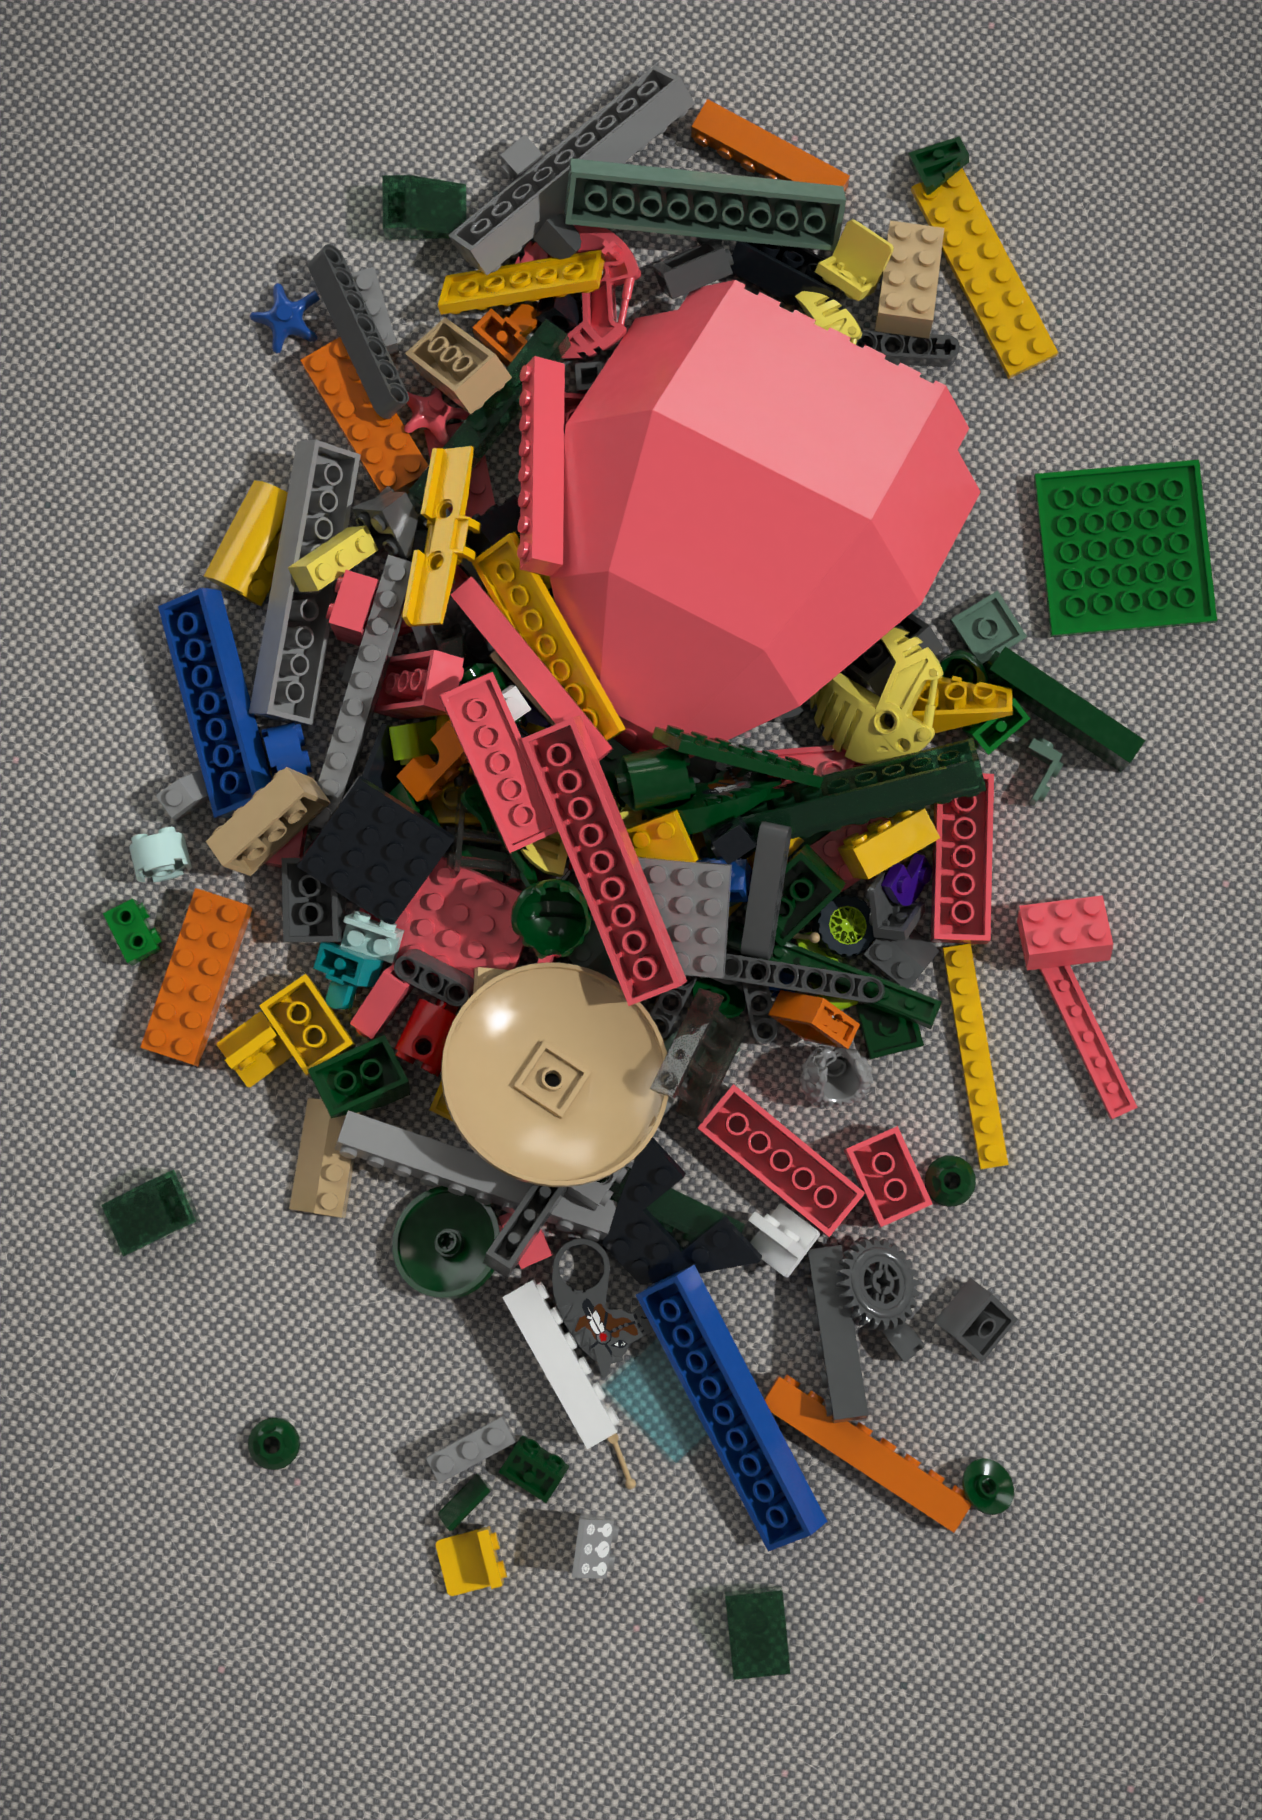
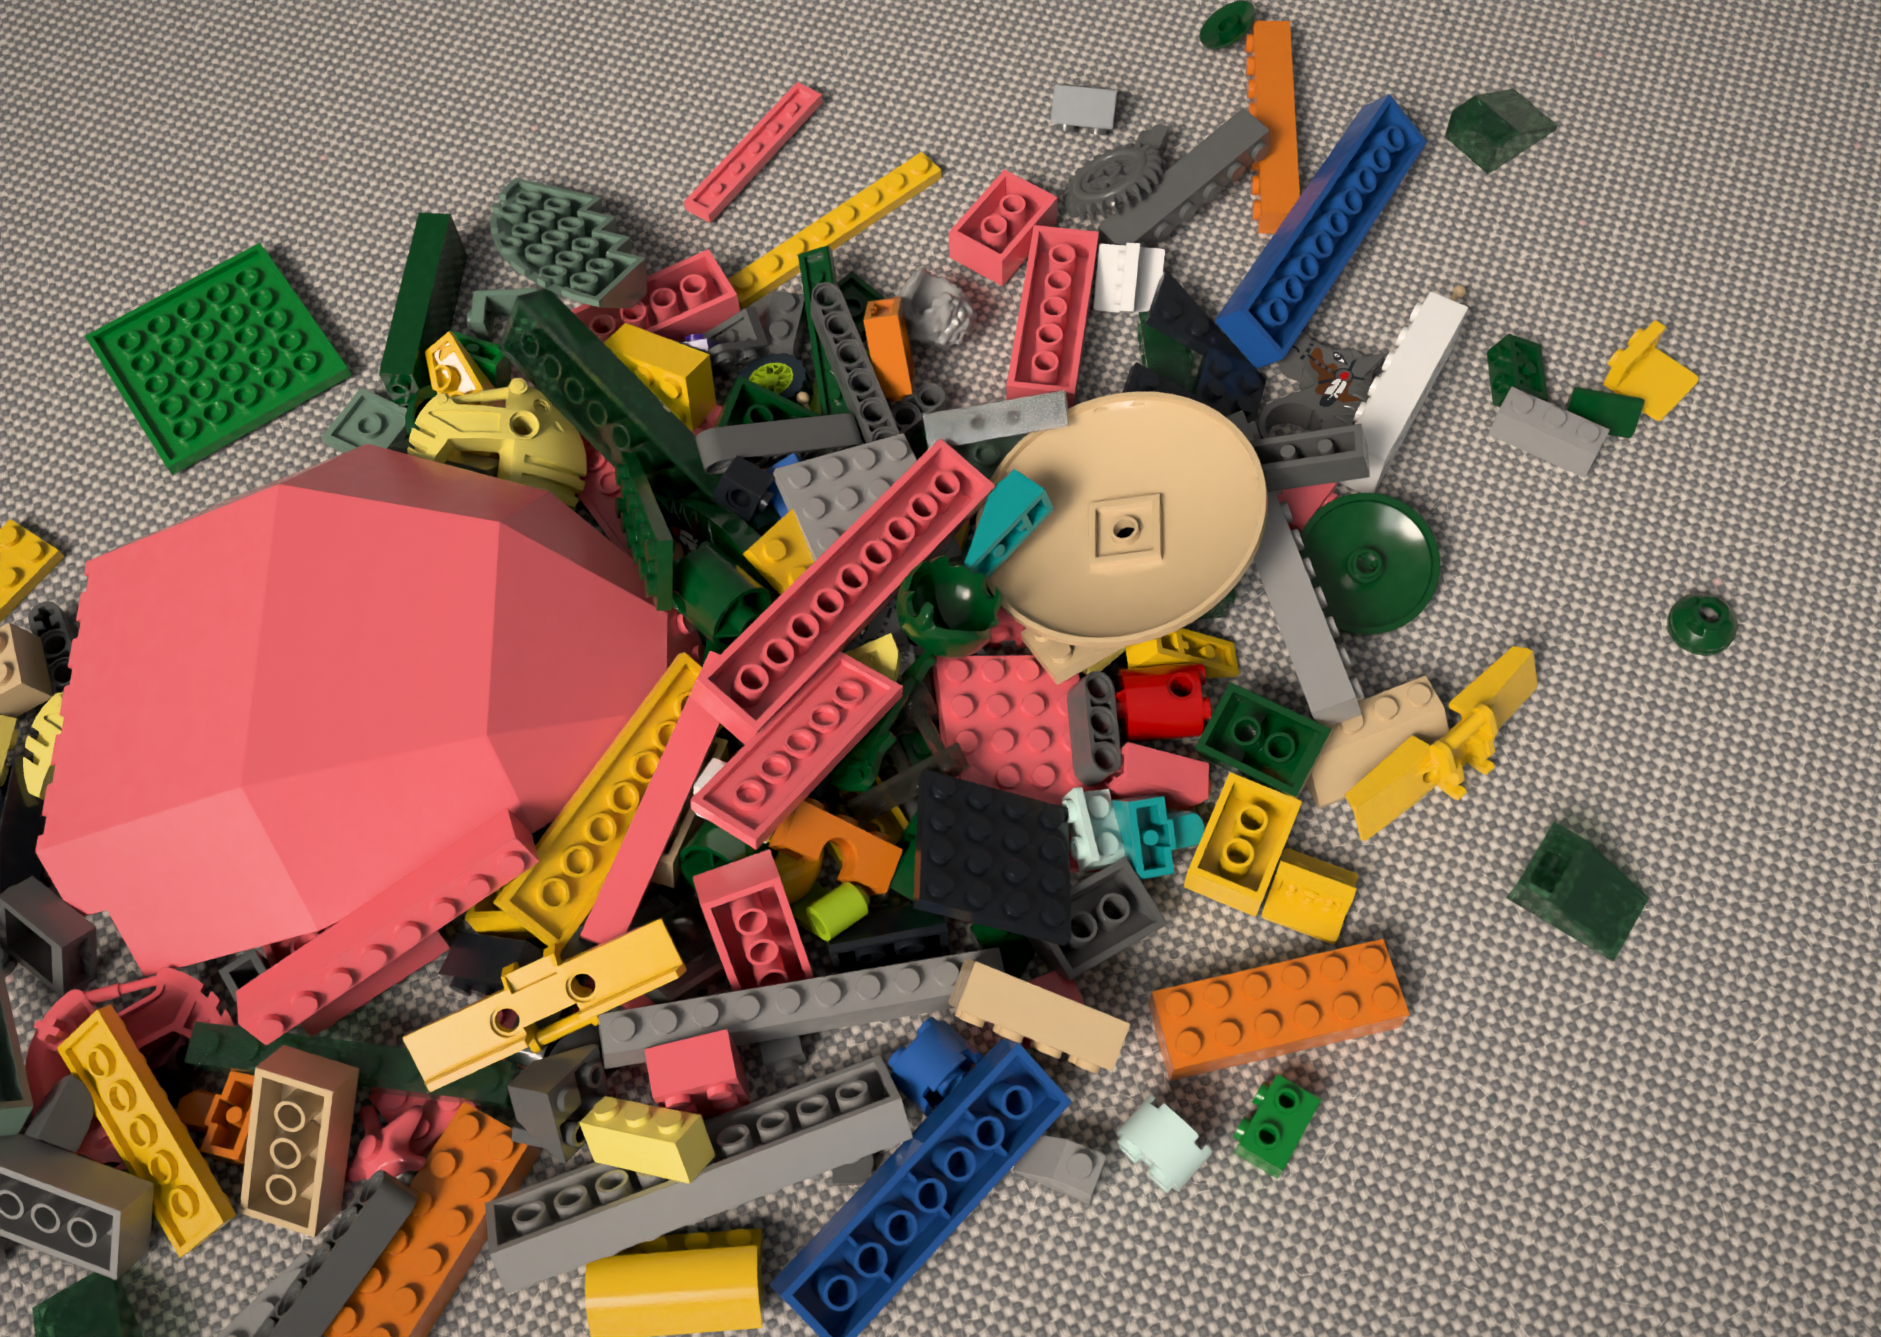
camera: 120 degrees left, 20 degrees down
(298, 1233) = (1418, 767): none -> yellow piece
(593, 1547) = (1547, 281): light grey slope -> none
(601, 1000) = (1007, 520): none -> teal slope
(659, 1402) = (1360, 308): clear light blue piece -> none
(935, 1181) = (960, 197): dark green piece -> none
(1046, 827) = (567, 245): none -> sand green brick
(1064, 932) = (661, 205): coral brick -> none

